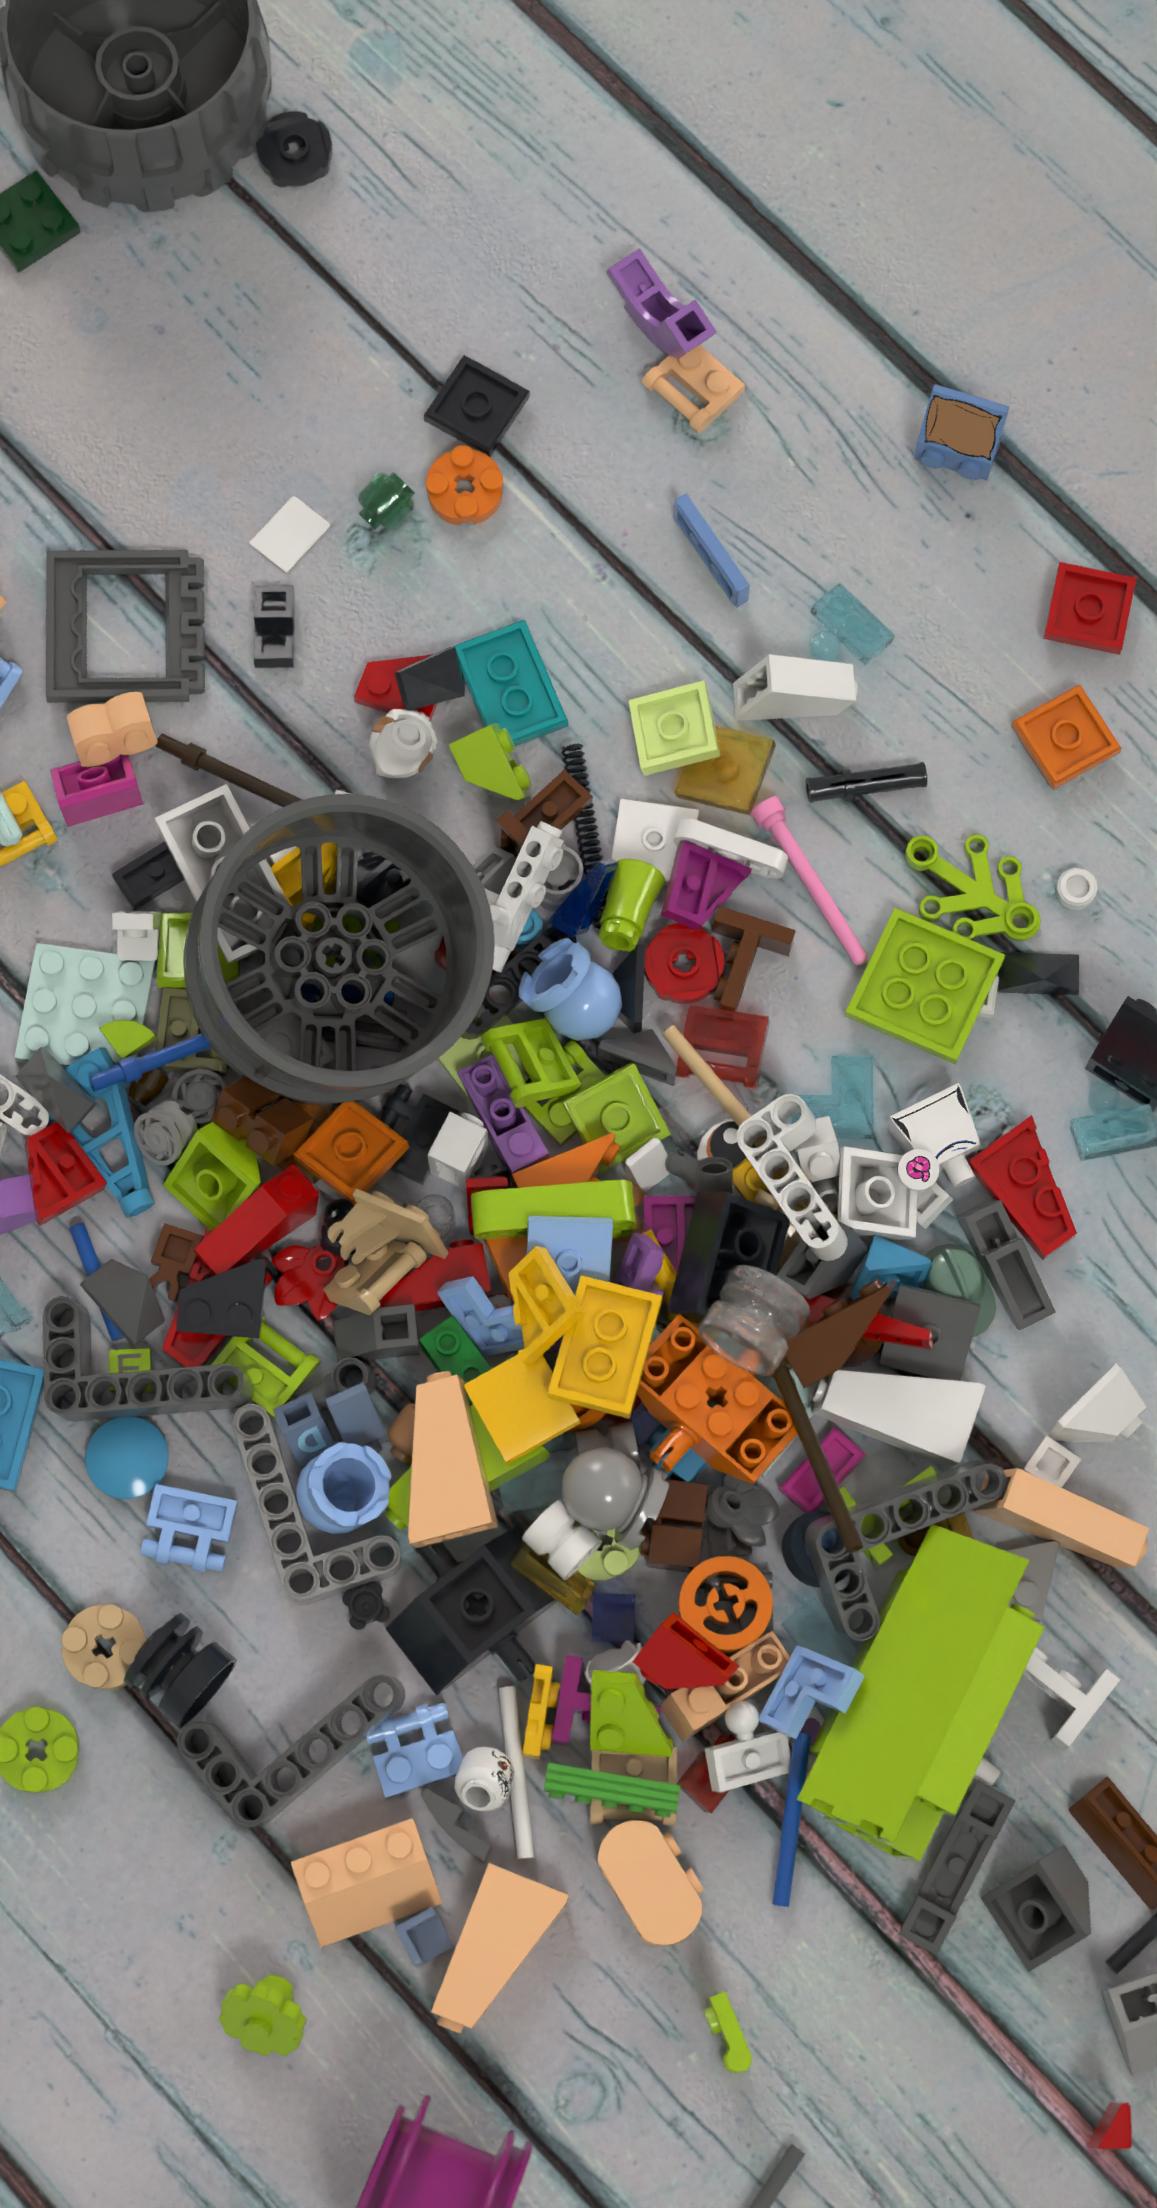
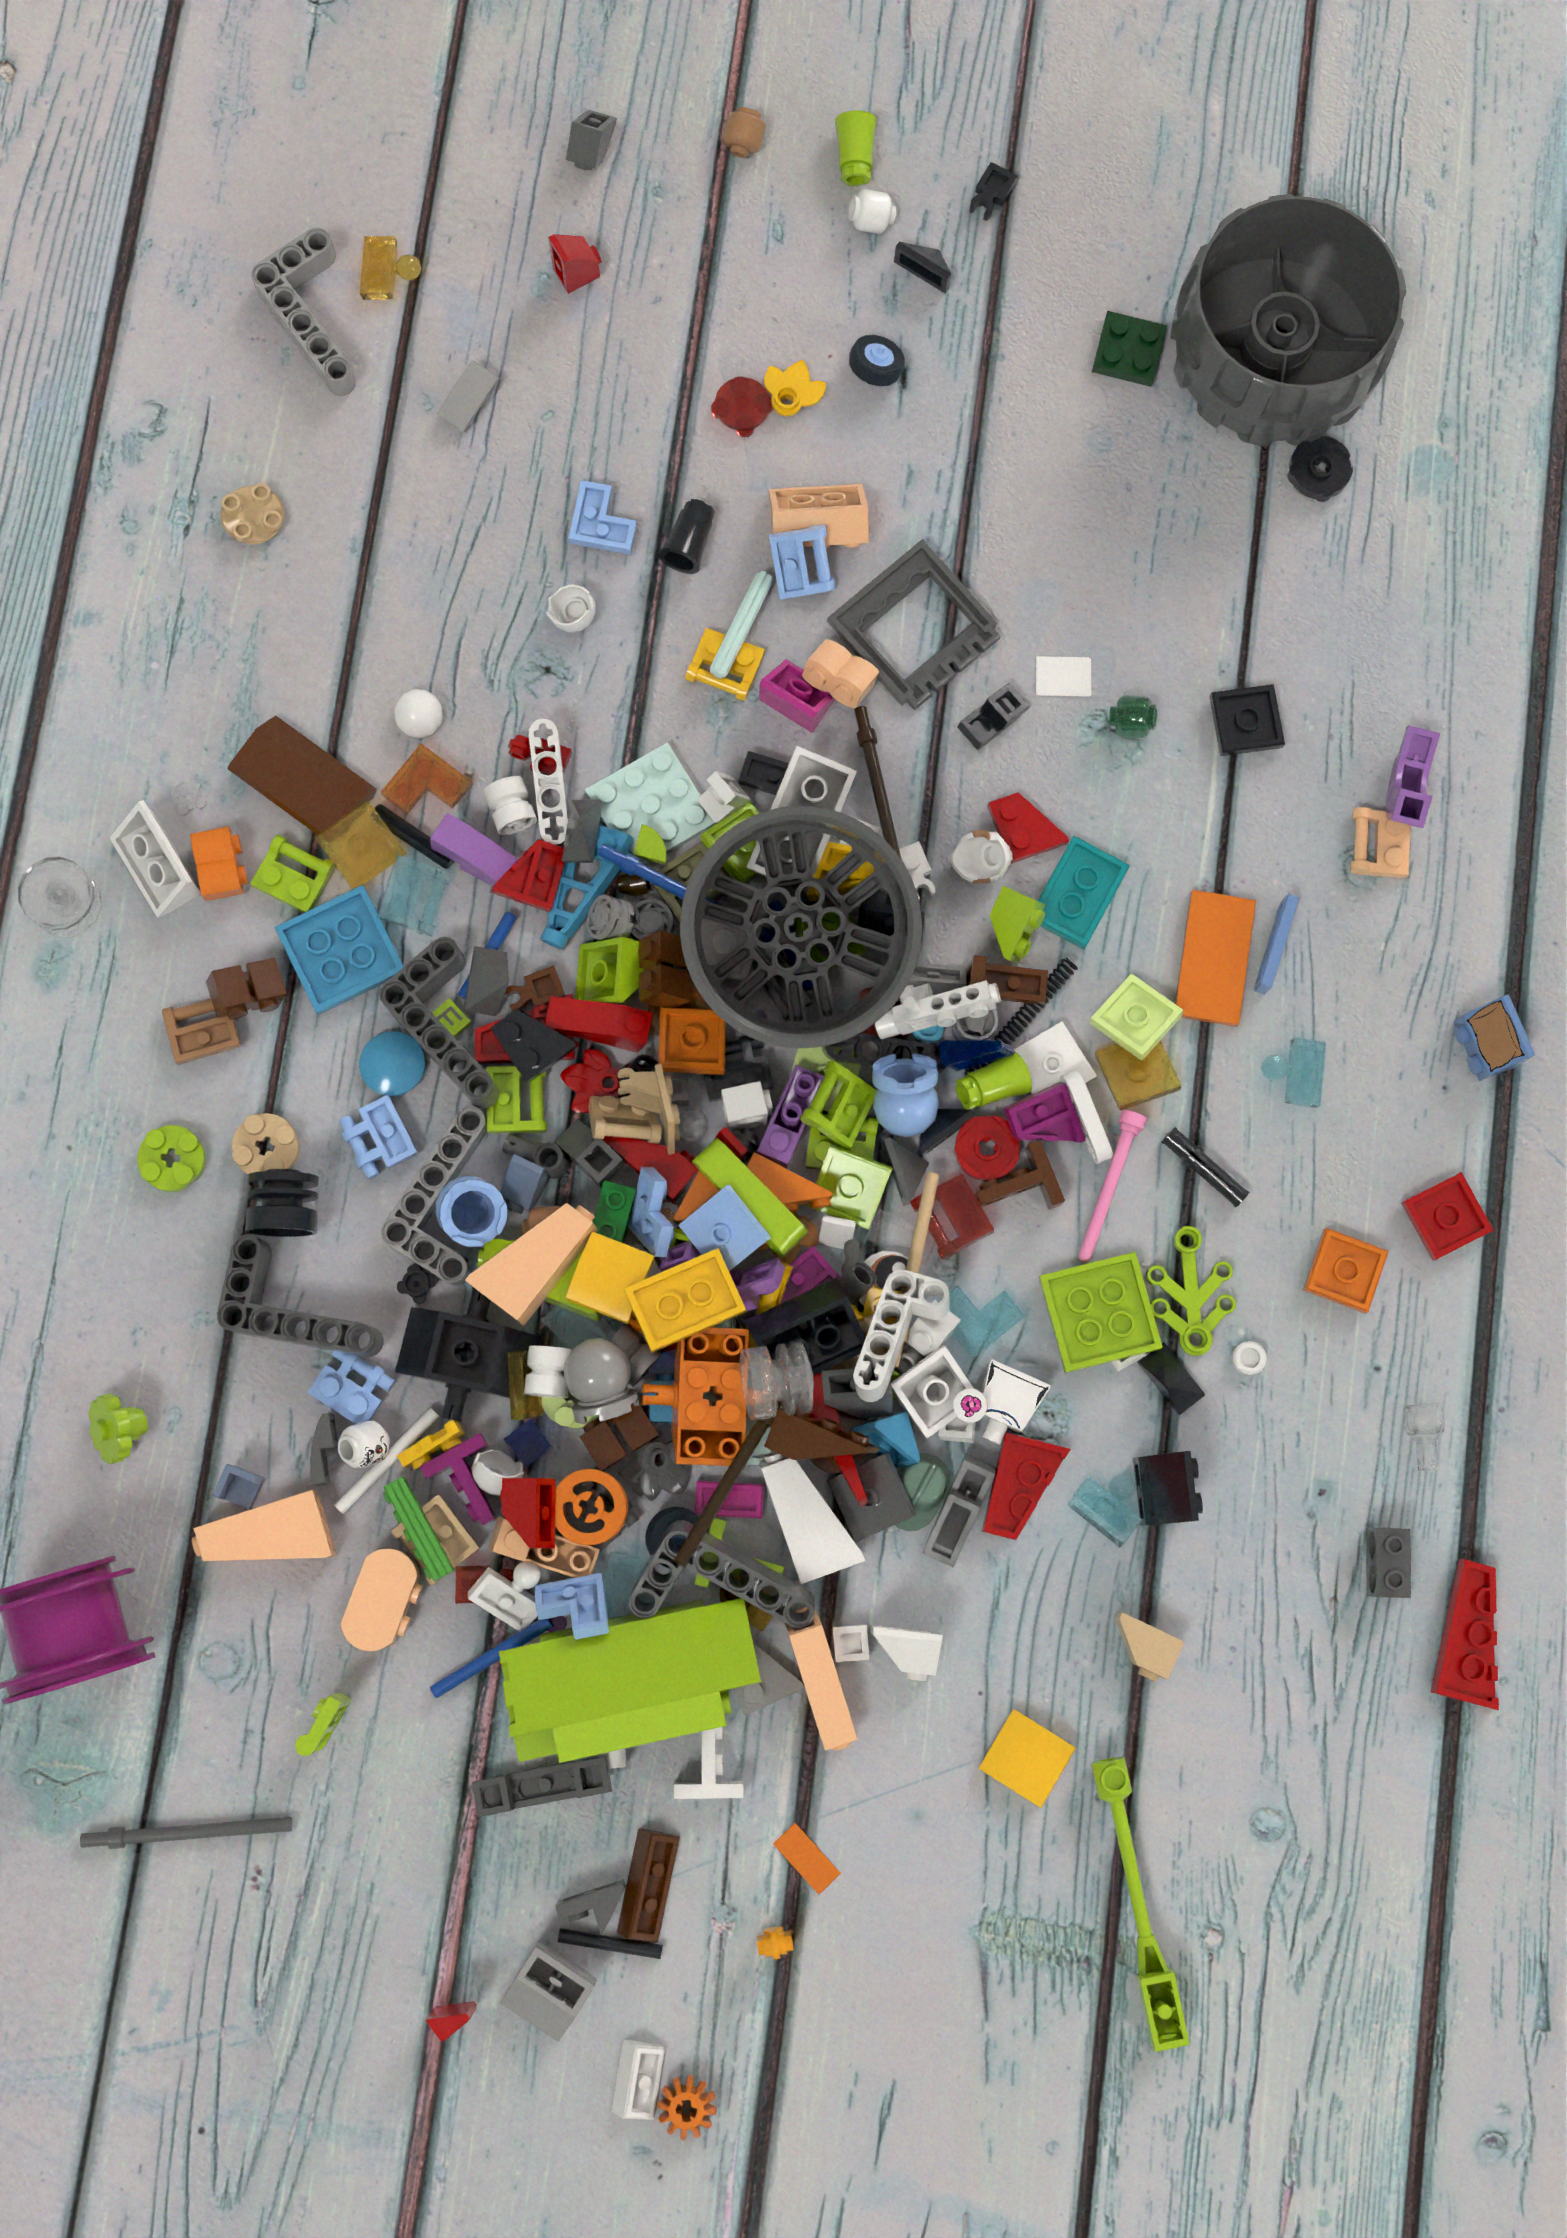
camera: 45 degrees right, 5 degrees up
(304, 1428) = (492, 1157): sand blue brick -> none
(366, 1882) = (245, 1423): light nougat slope -> none
(431, 680) = (1038, 841): black slope -> none
(459, 465) = (1198, 742): orange plate -> none
(542, 1303) = (679, 1238): yellow wing -> none
(624, 1717) = (467, 1501): lime wing -> none
(676, 615) = (1215, 957): none -> orange tile
(794, 689) = (1228, 1071): white slope -> none
(1043, 1908) = (560, 1862): dark grey slope -> none
(1111, 1895) = (601, 1899): none -> dark grey slope

